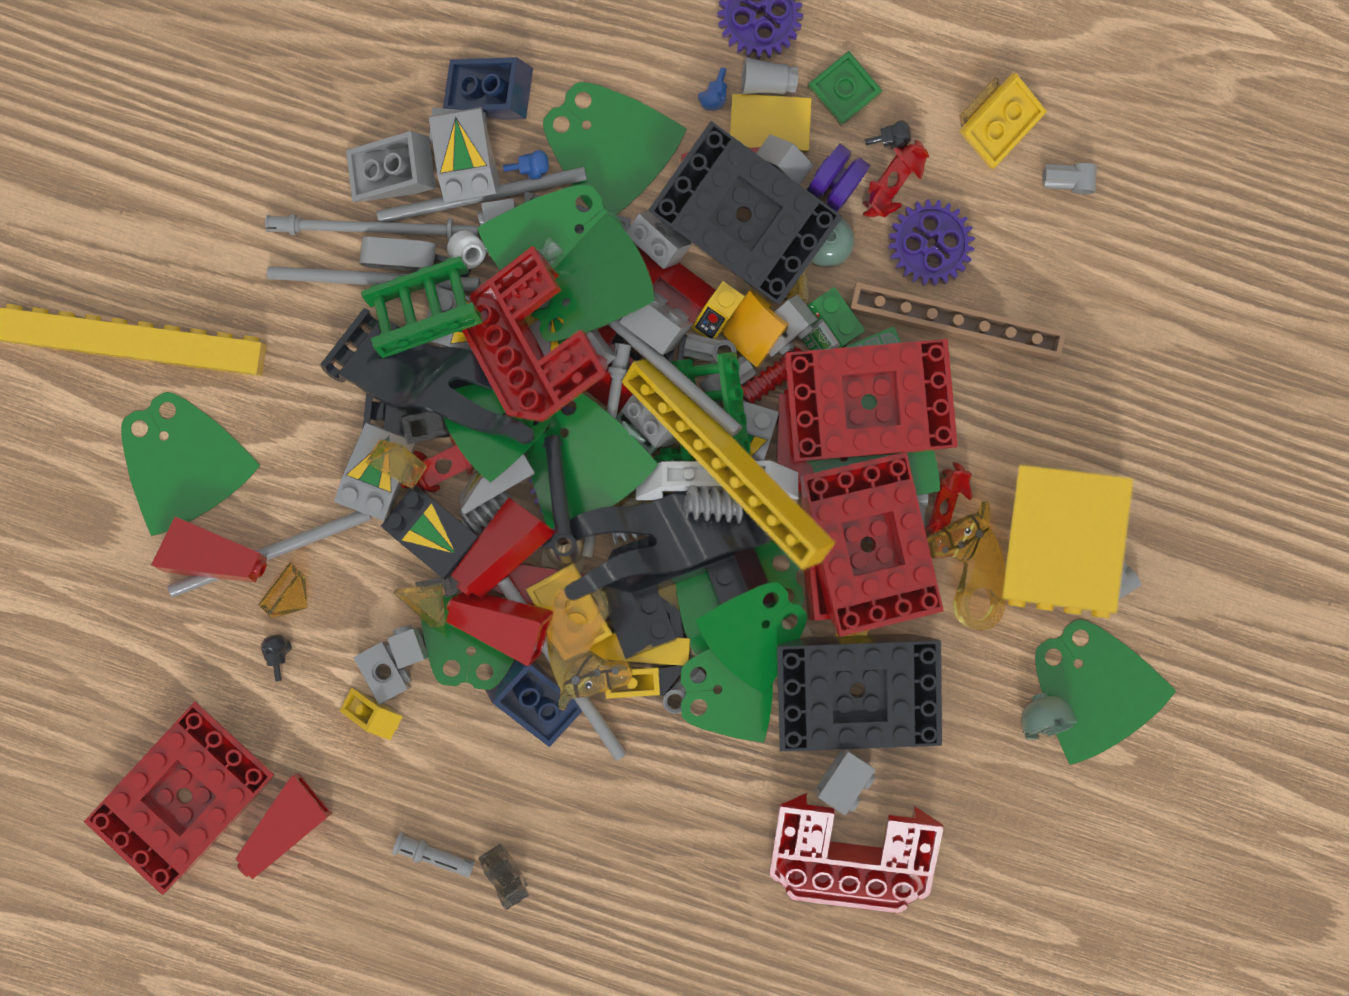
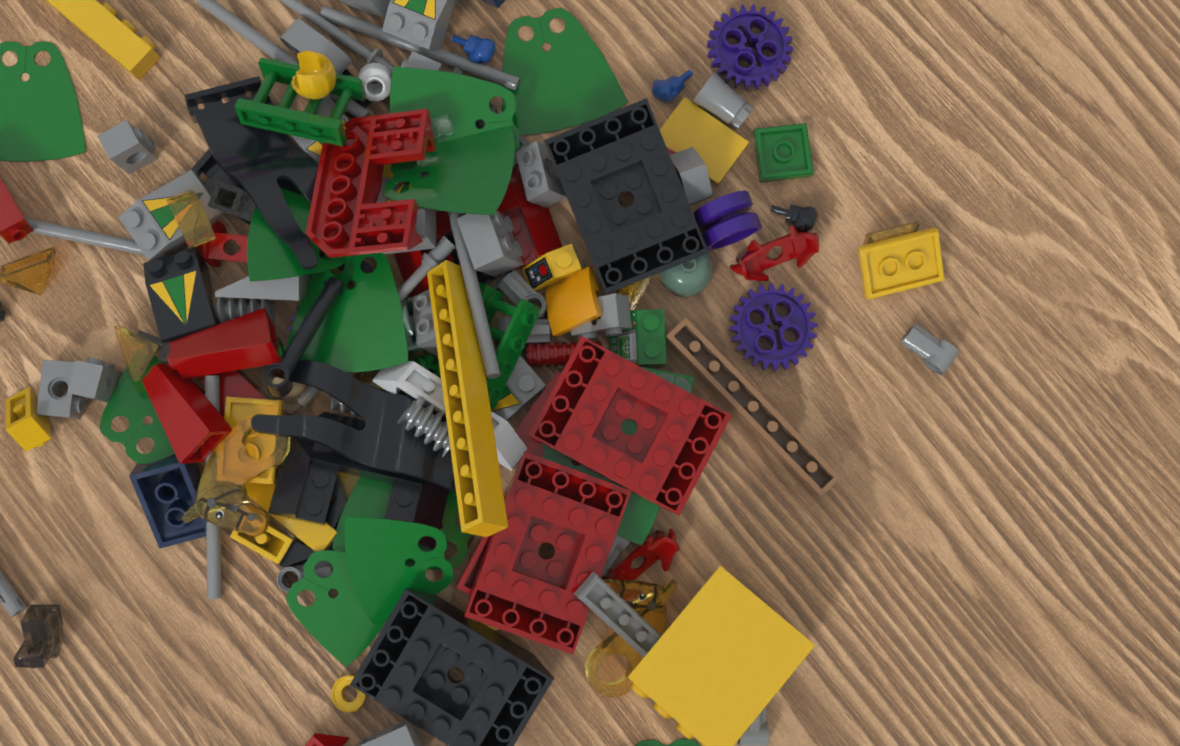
camera: 30 degrees right, 5 degrees down
(300, 437) = (128, 146): none -> light grey brick
(422, 279) = (315, 77): none -> yellow hair
(776, 771) = (339, 699): none -> yellow piece
(961, 557) = (617, 614): none -> light grey tile

